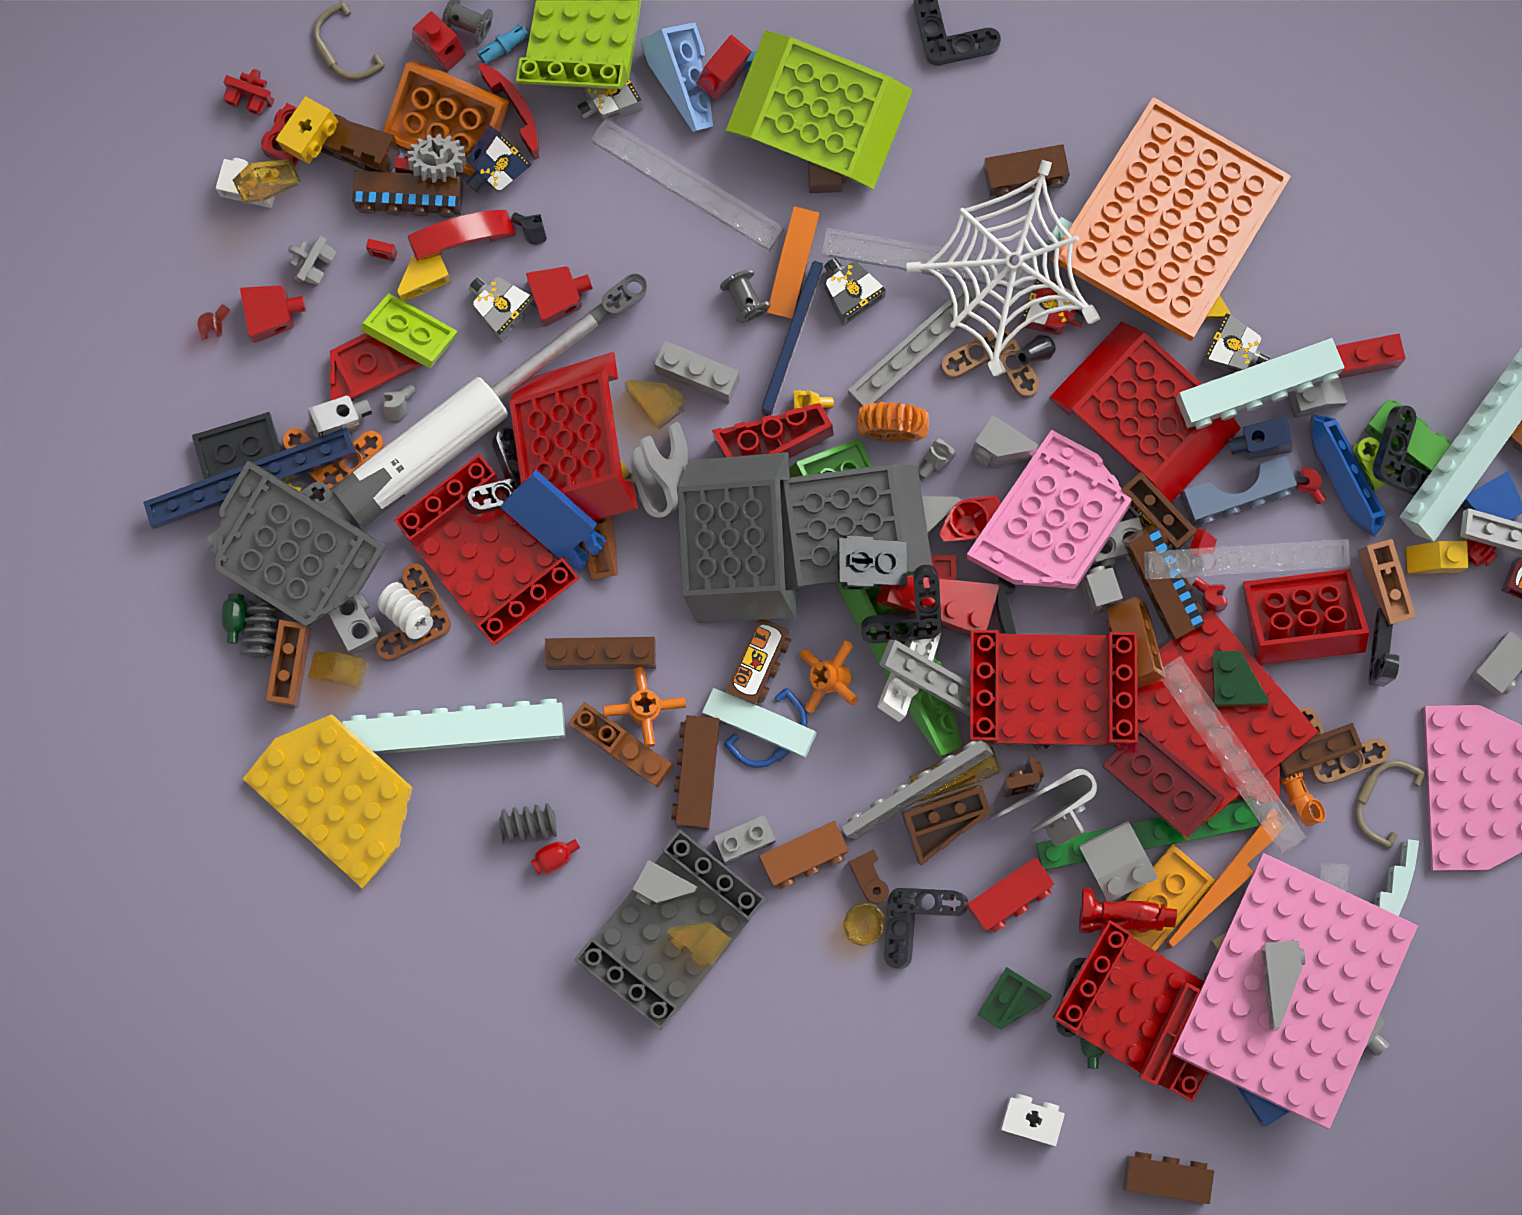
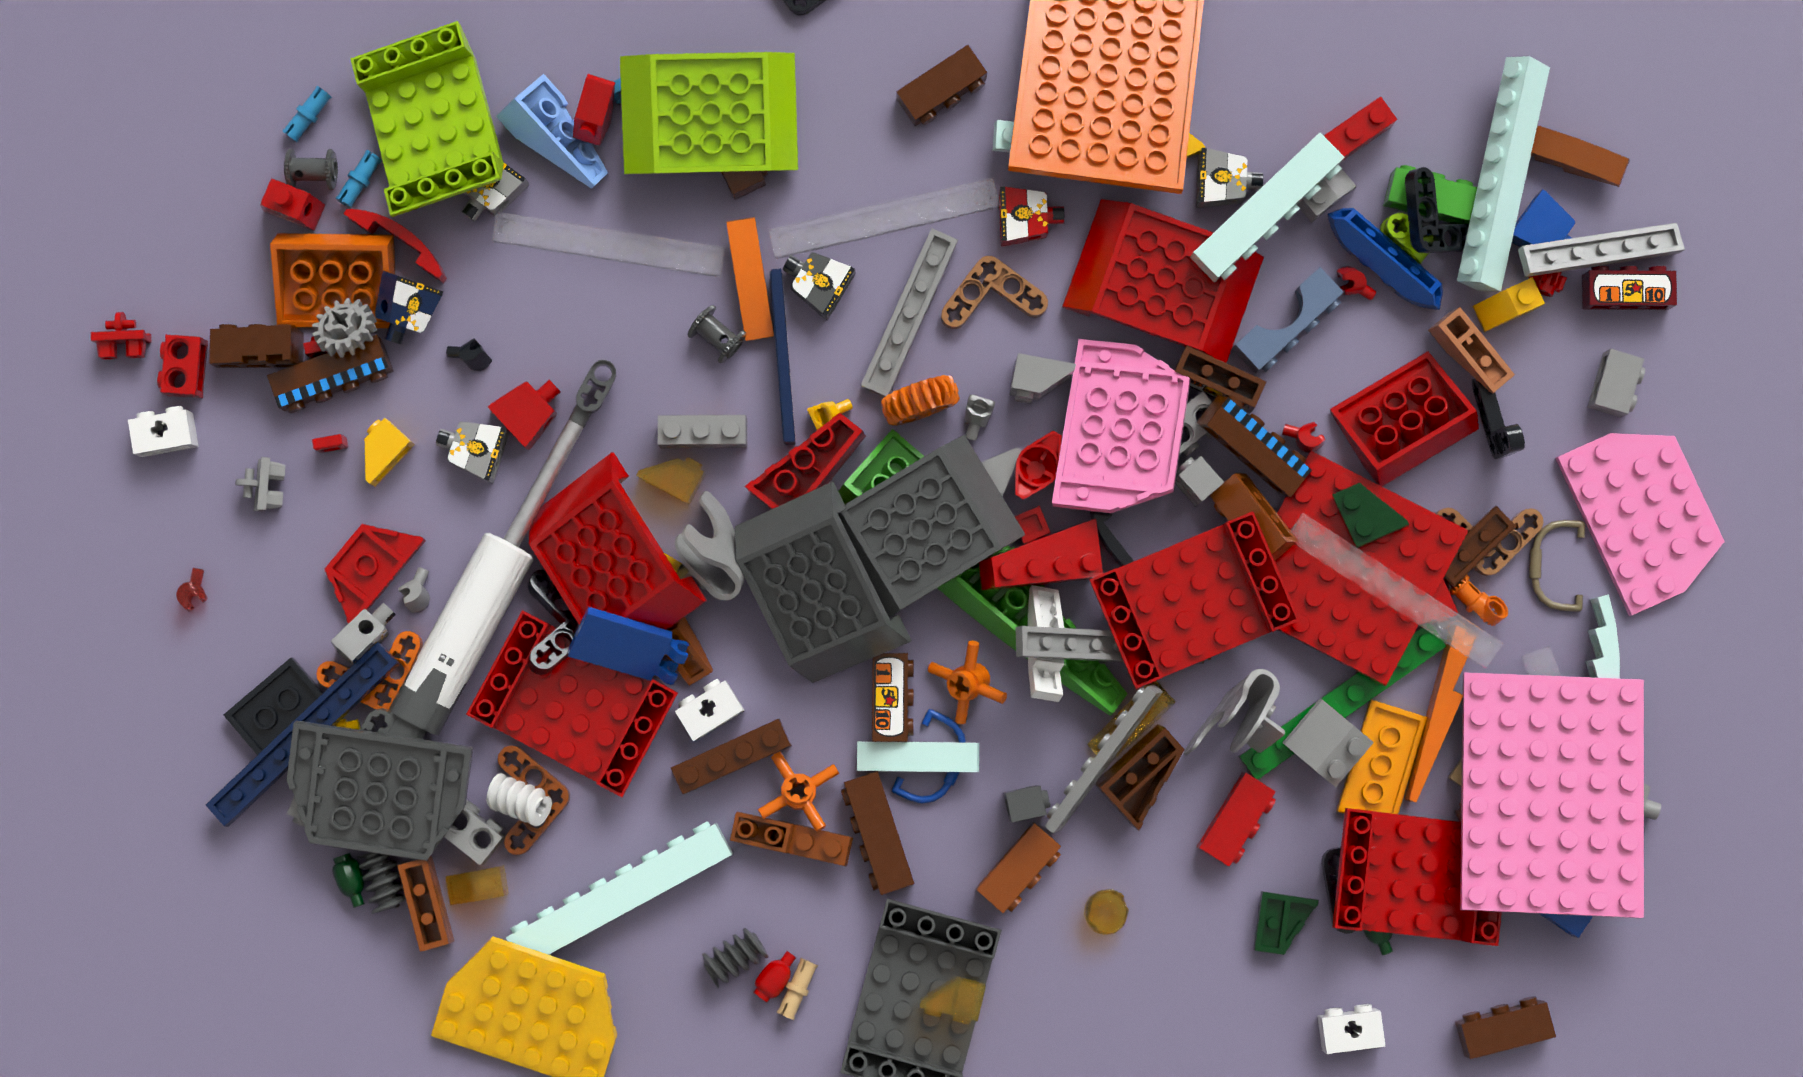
camera: 30 degrees left, 5 degrees up
(265, 179) = (181, 425): clear yellow slope -> none
(269, 310) = (244, 554): red torso -> none
(307, 130) = (193, 343): yellow brick -> none
(327, 55) = (185, 266): dark tan piece -> none
(409, 330) = (395, 514): lime plate -> none
(460, 231) = (403, 392): red slope -> none
(569, 875) = (797, 988): none -> tan pin
(613, 612) = (726, 708): none -> white brick
(661, 885) = (893, 962): light grey slope -> none
(744, 839) = (954, 879): light grey brick -> none
(834, 800) = (1026, 803): none -> dark grey brick
(868, 879) = (1098, 869): reddish brown leg -> none
(871, 562) = (963, 557): piece -> none
(907, 914) = (1144, 883): black beam -> none
(921, 615) = (1034, 587): black beam -> none
(1020, 782) = (1200, 705): reddish brown bracket -> none
(1037, 350) = (1031, 263): black cone -> none
(1088, 311) = (1069, 208): white animal -> none
(1130, 915) = (1355, 793): red piece -> none
(1164, 783) = (1341, 648): dark red plate -> none
(1169, 1034) = (1449, 890): red piece -> none
(1202, 539) = (1276, 392): red tile -> none
(1246, 559) = (1326, 389): clear plate -> none
(1275, 439) = (1303, 253): dark blue torso -> none
(1281, 971) = (1536, 790): light grey slope -> none

